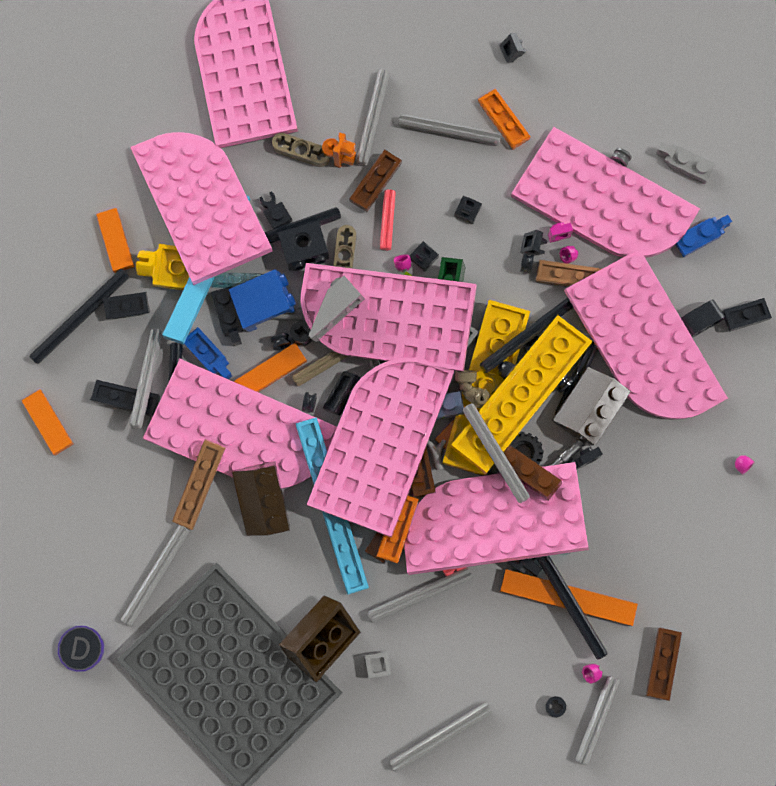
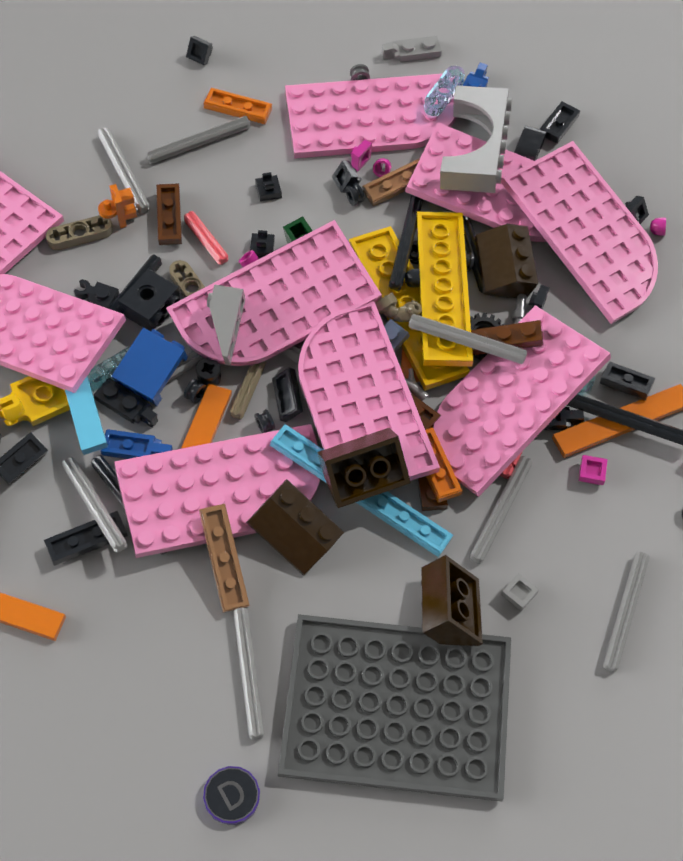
camera: 45 degrees left, 15 degrees down
(334, 496) = (364, 467): none -> dark brown slope
(510, 618) = (593, 470): none -> dark pink plate
(598, 571) = (627, 380): none -> black plate
(630, 318) = (480, 168): none -> light grey arch
(678, 426) = (587, 229): none -> bright pink plate
(689, 221) = (443, 98): none -> clear light blue beam
(734, 438) = (638, 208): none -> black tile

